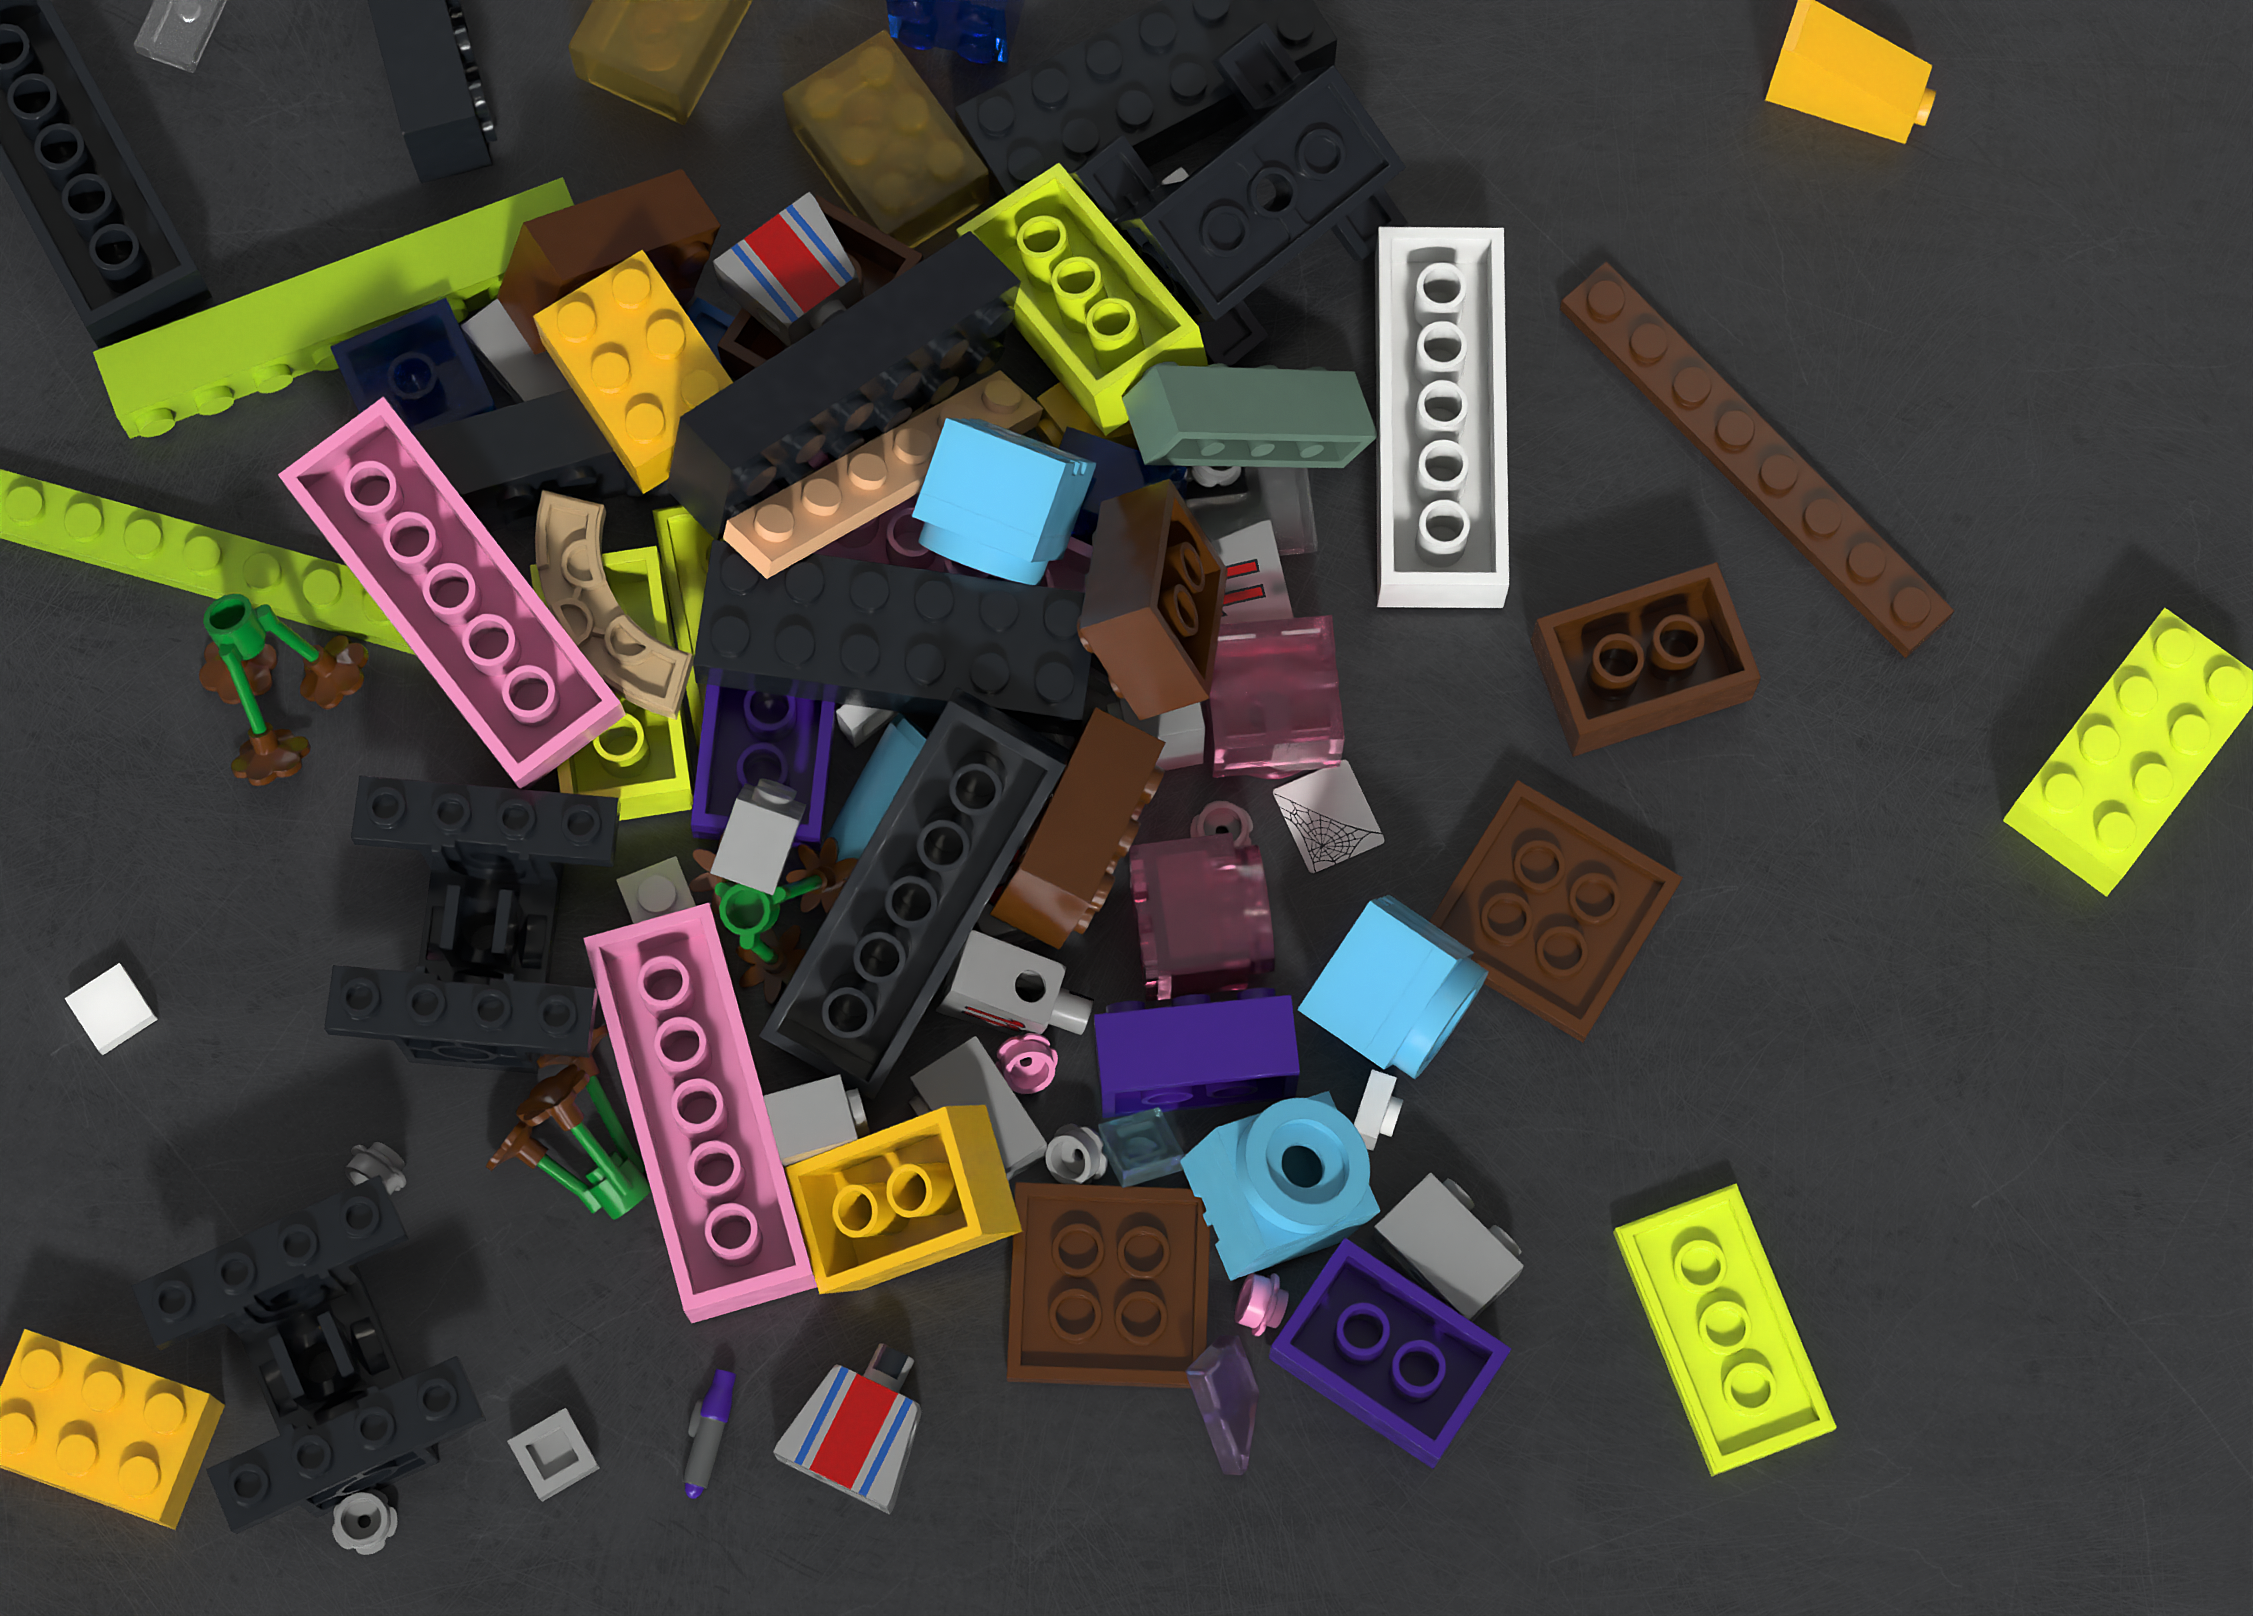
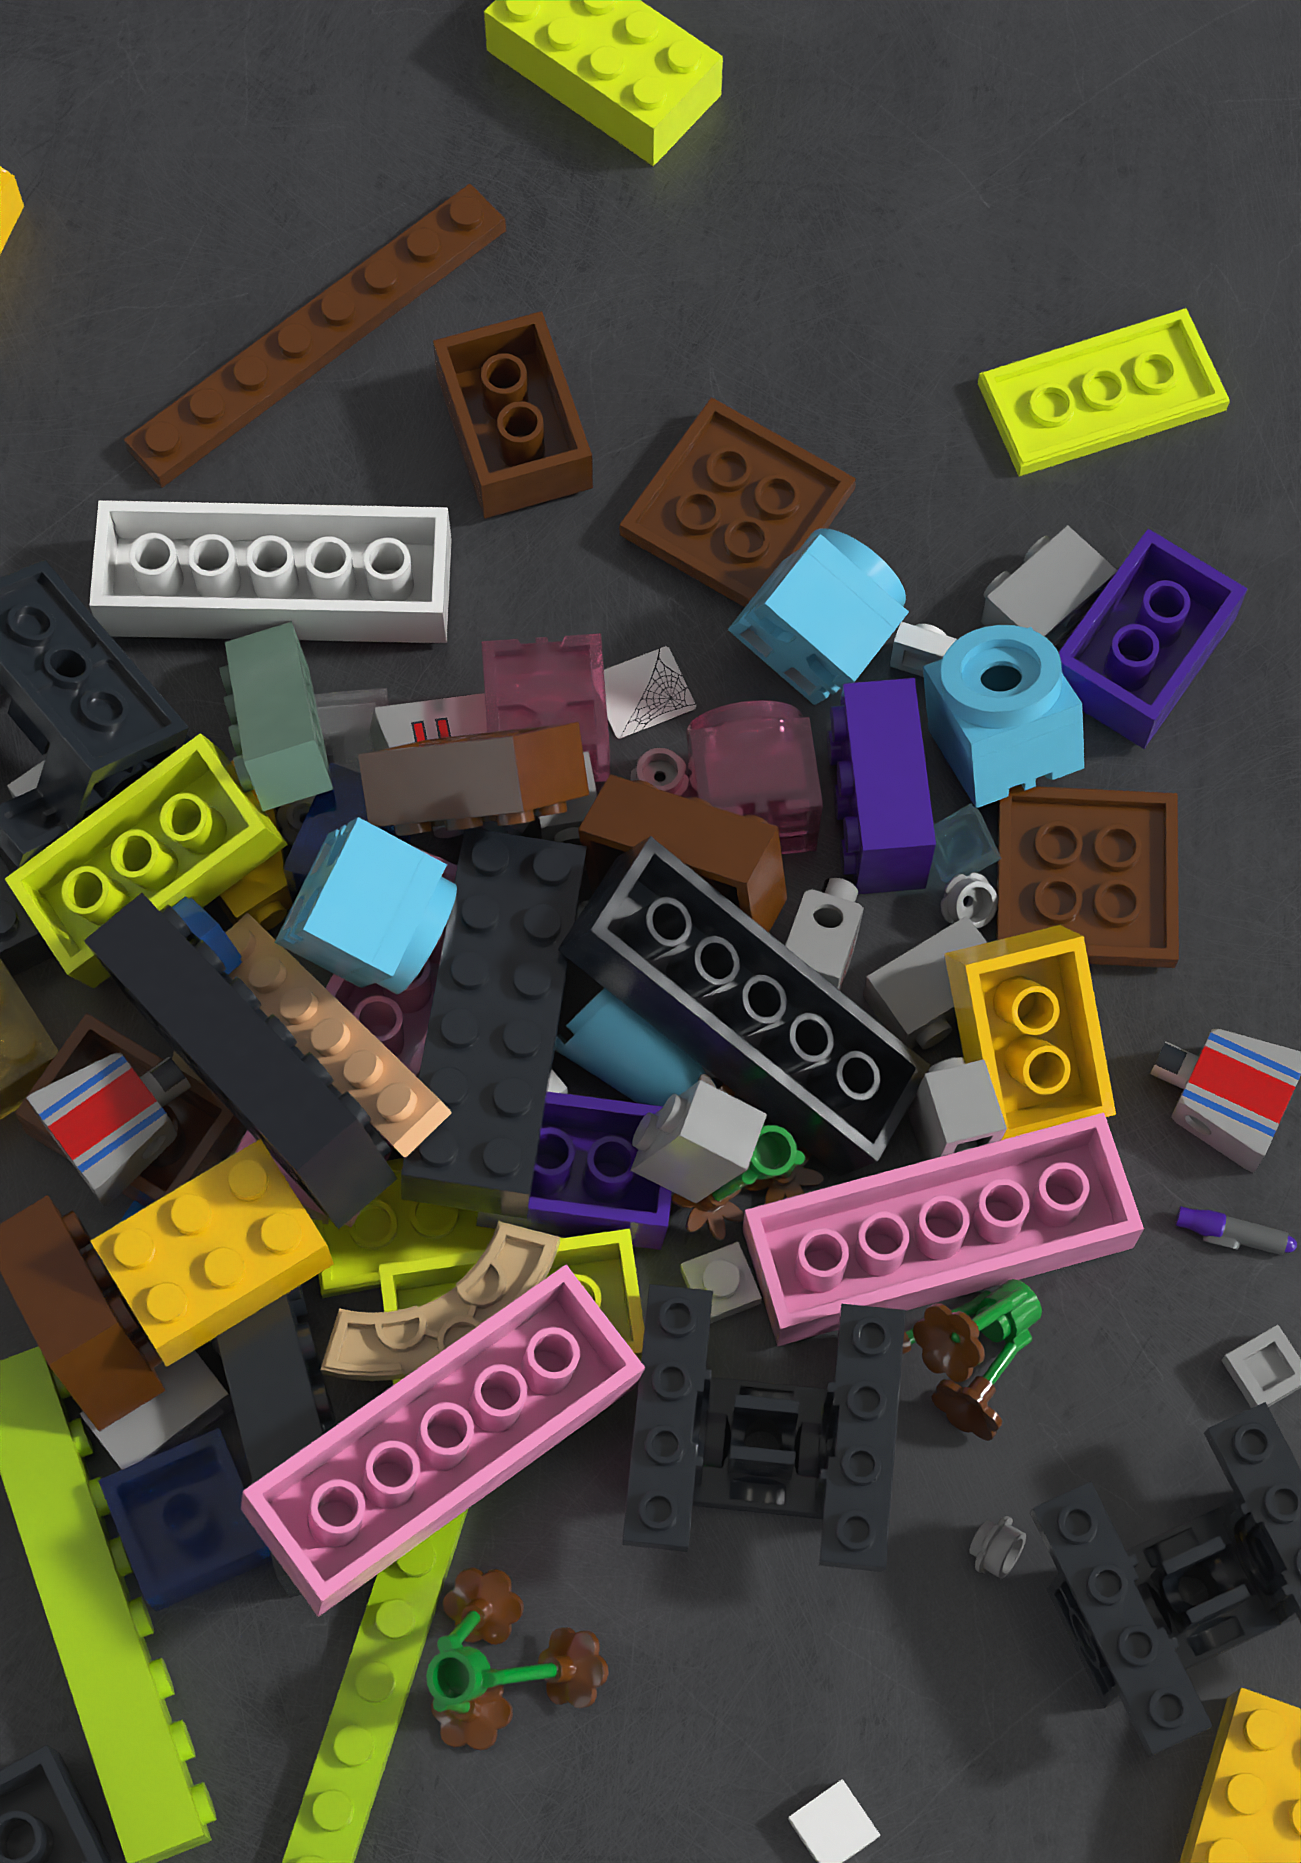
camera: 90 degrees left, 5 degrees down
(998, 359) = (208, 930): none -> blue tile
(1031, 1074) = (881, 942): bright pink plate -> none
(1226, 1400) = (1189, 778): clear purple tile -> none
(1261, 1303) = (1102, 751): bright pink plate -> none

